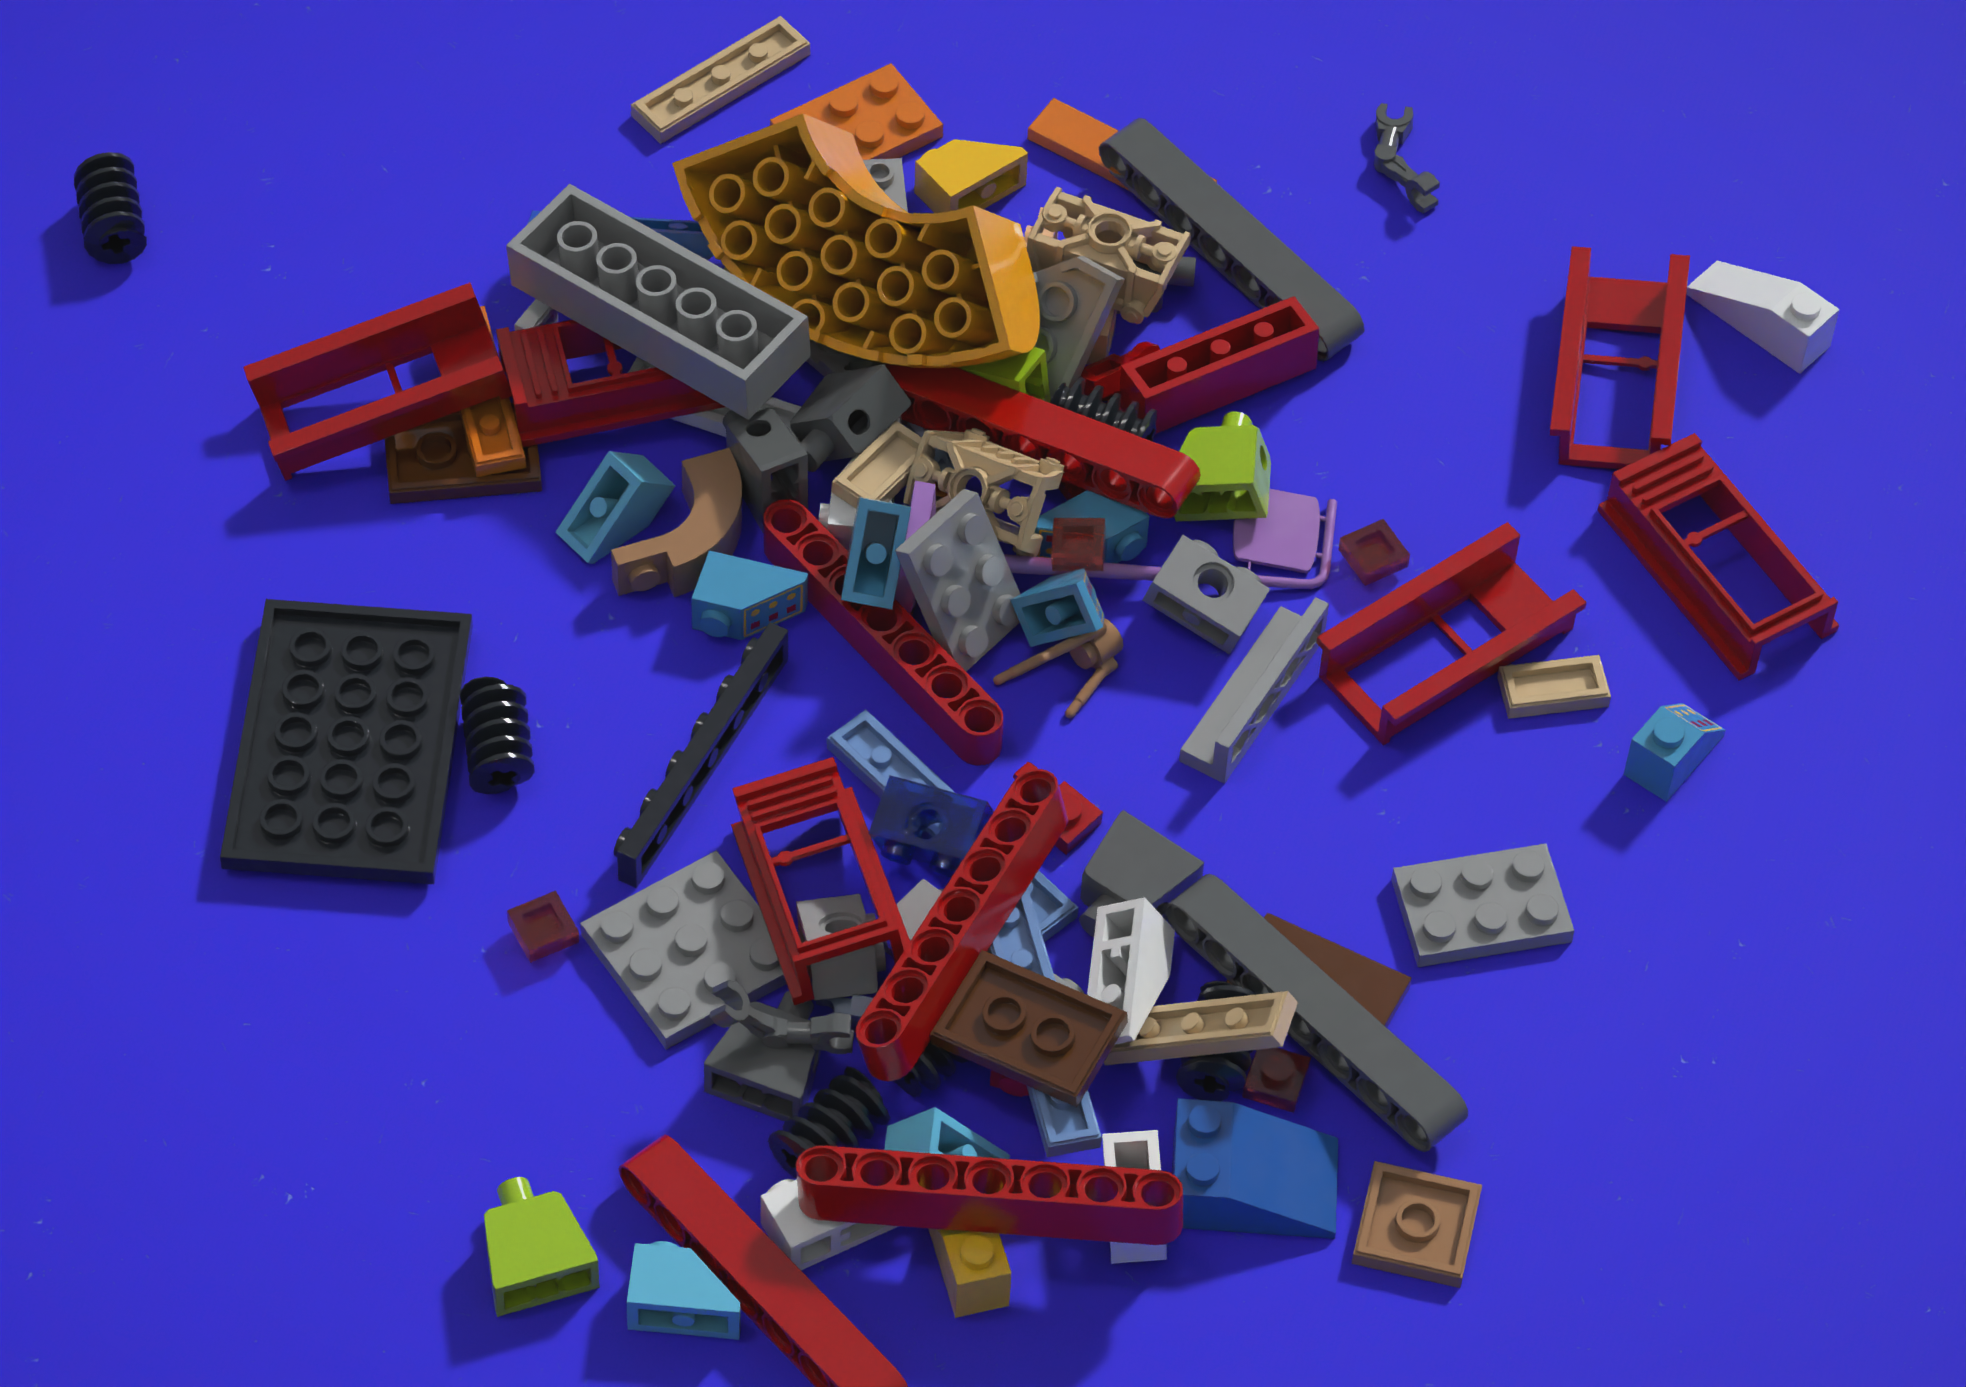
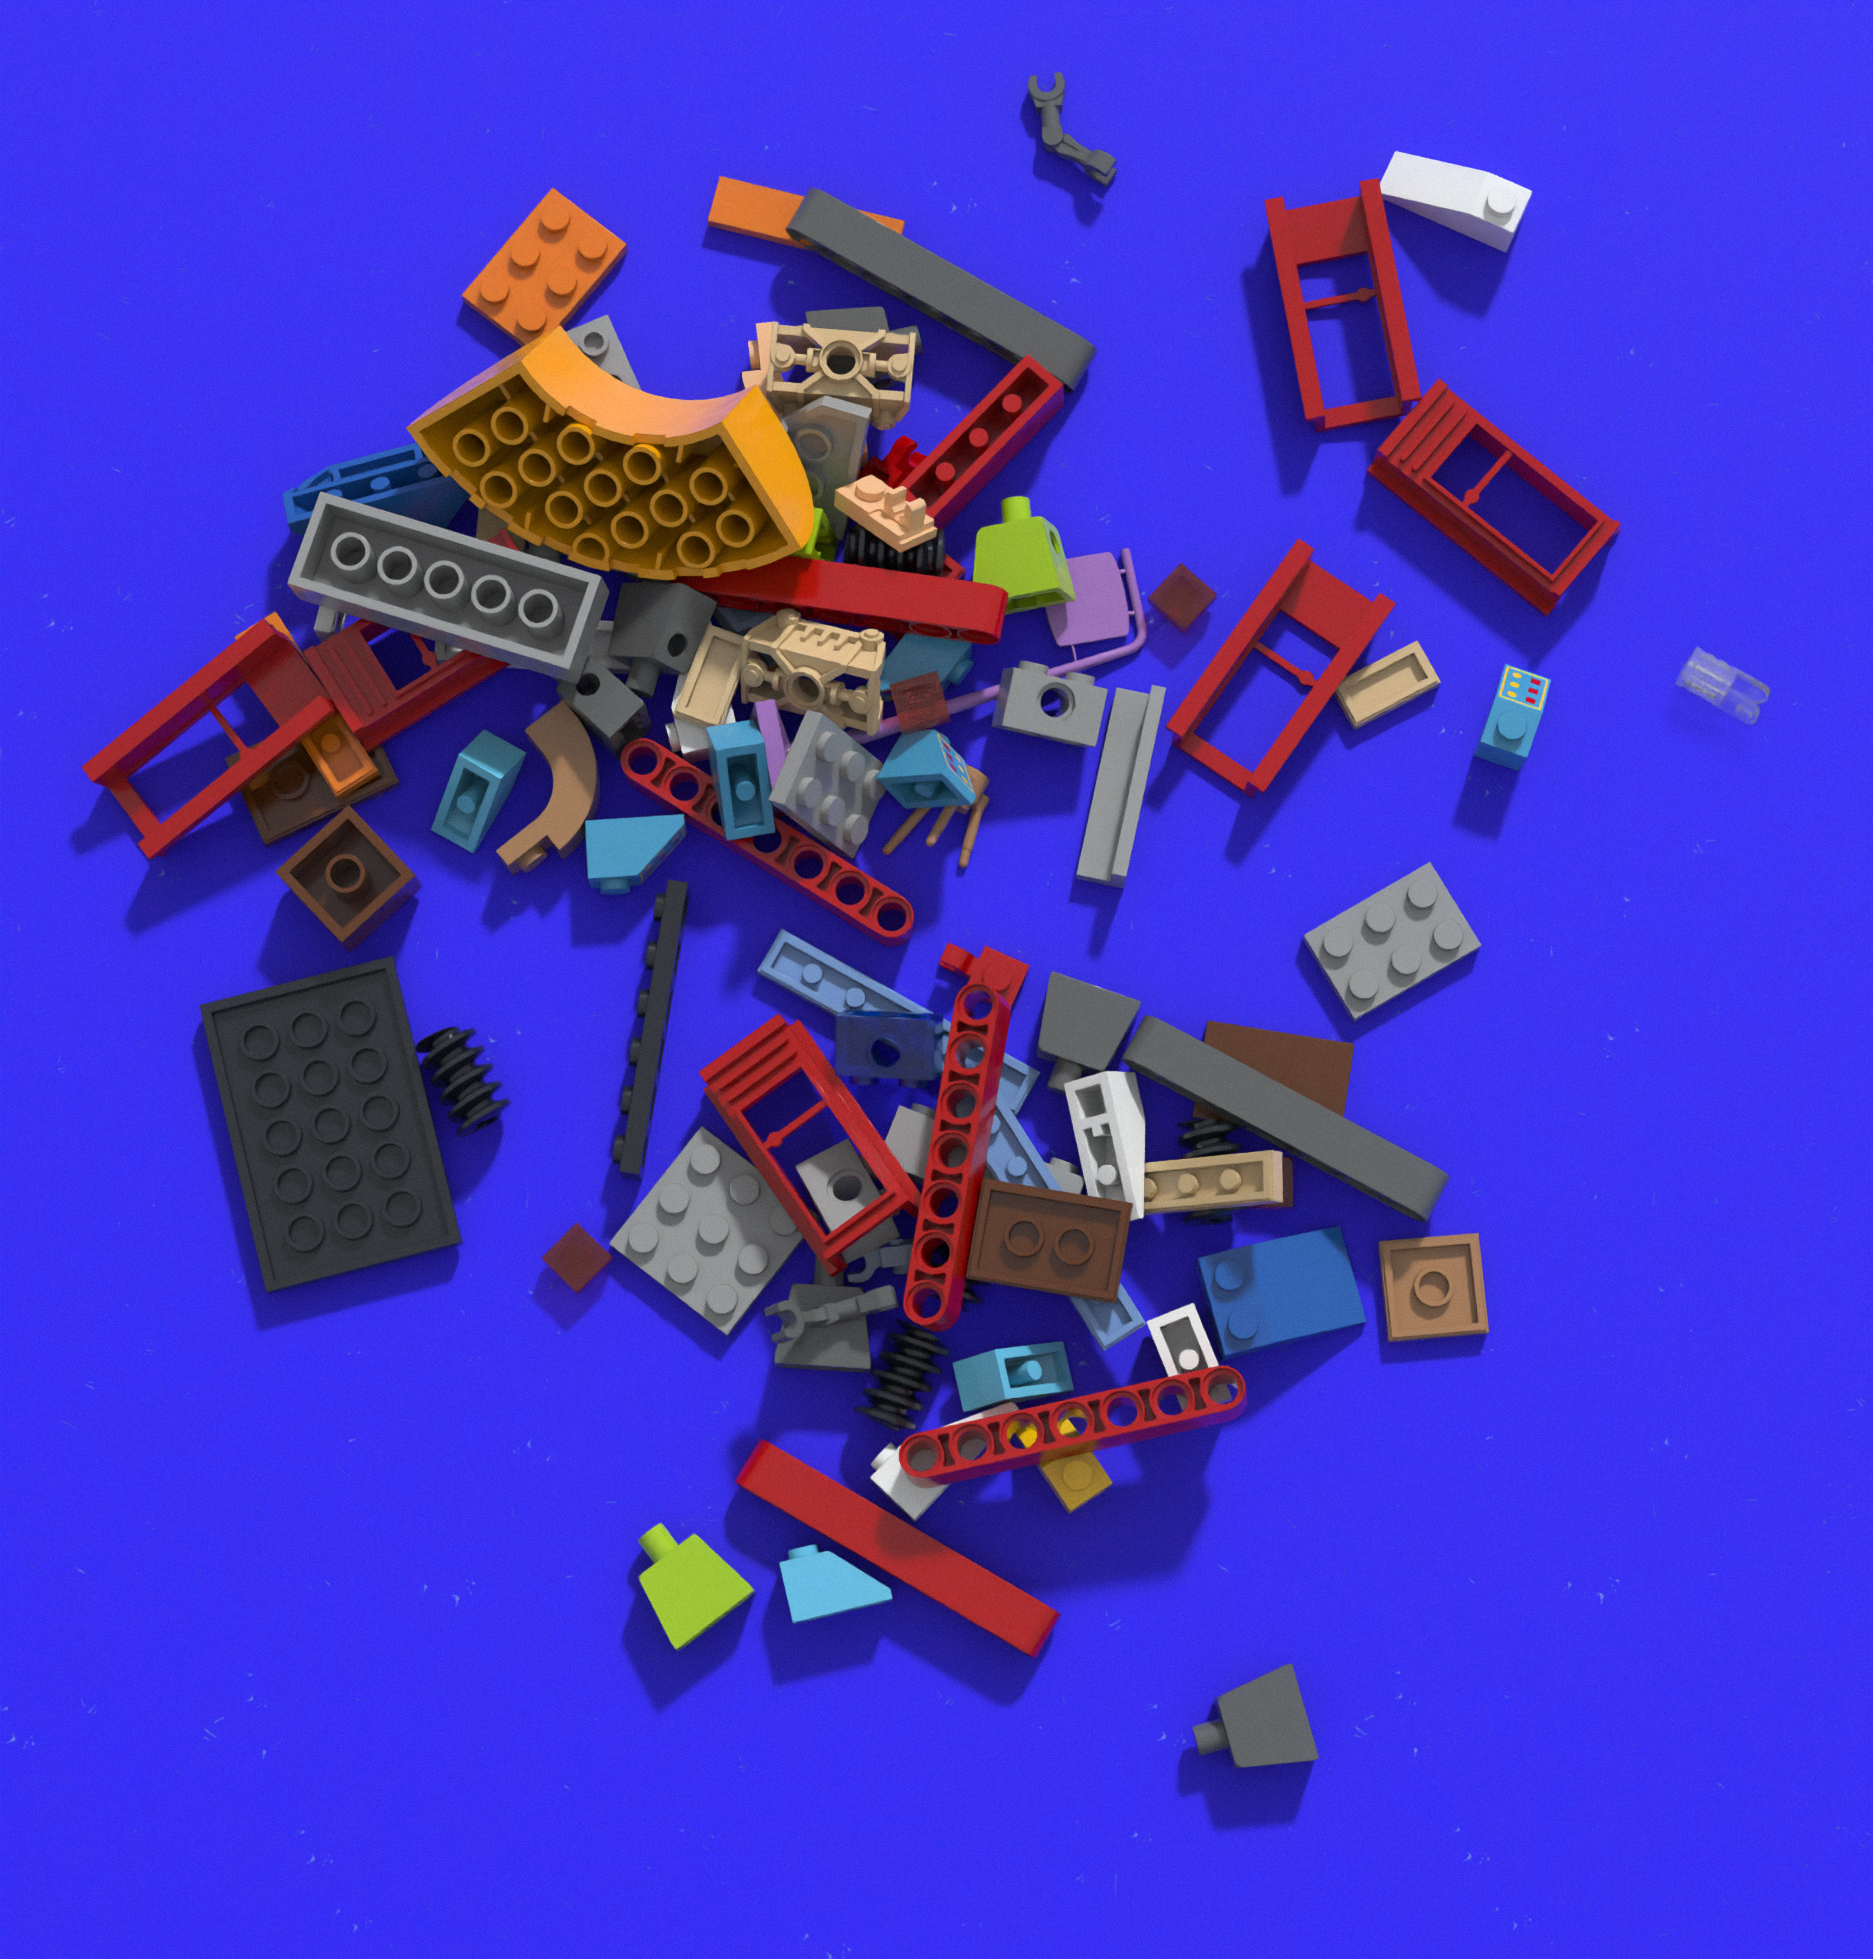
camera: 15 degrees left, 25 degrees up
(458, 535) = (349, 879): none -> reddish brown brick
(720, 79) = (396, 258): tan tile -> none
(969, 174) = (670, 301): yellow slope -> none
(1108, 372) = (886, 512): none -> light nougat plate
(1899, 779) = (1723, 685): none -> clear hinge

